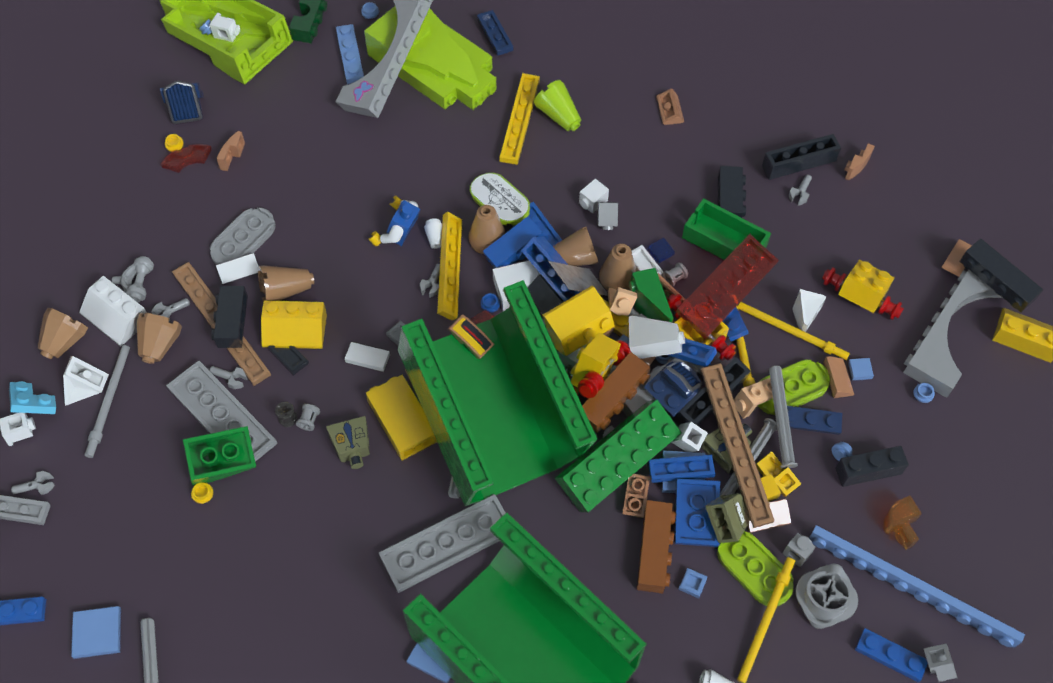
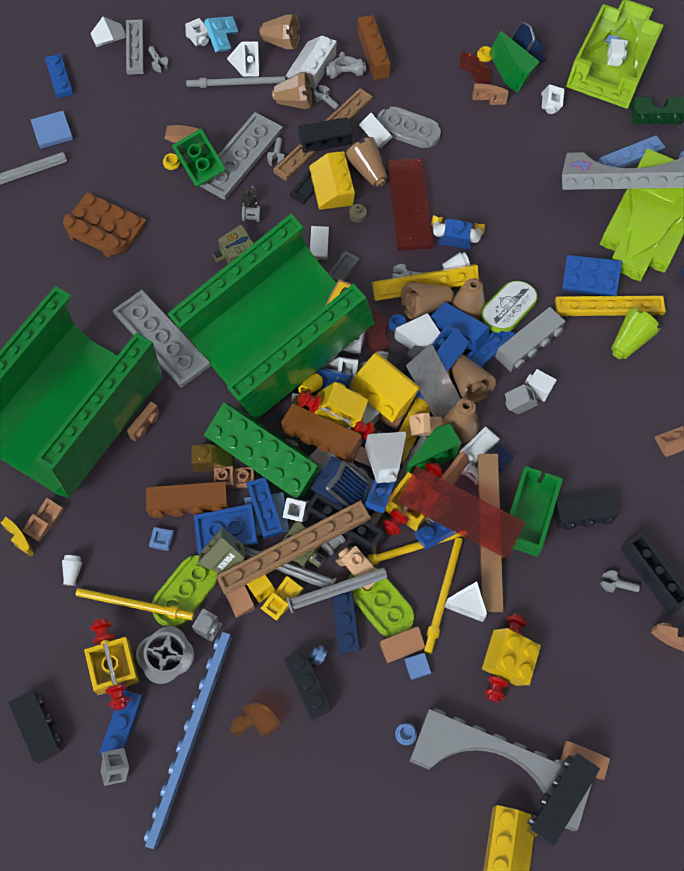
camera: 75 degrees right, 5 degrees up
(121, 244) = (373, 47): none -> dark orange brick
(165, 474) = (177, 132): none -> nougat slope
(204, 116) = (512, 62): none -> green slope
(260, 98) = (551, 102): none -> white brick
(268, 587) = (103, 225): none -> dark orange plate
(340, 311) = (357, 213): none -> dark tan tile
(347, 258) = (409, 205): none -> clear red plate
(472, 271) = (424, 298): none -> medium nougat cone
(484, 122) = (591, 275): none -> blue plate
(541, 190) = (530, 339): none -> light grey brick
(611, 516) = (209, 456): none -> pearl gold slope
(706, 265) = (490, 562): none -> medium nougat tile
(836, 649) = (111, 665): none -> yellow brick

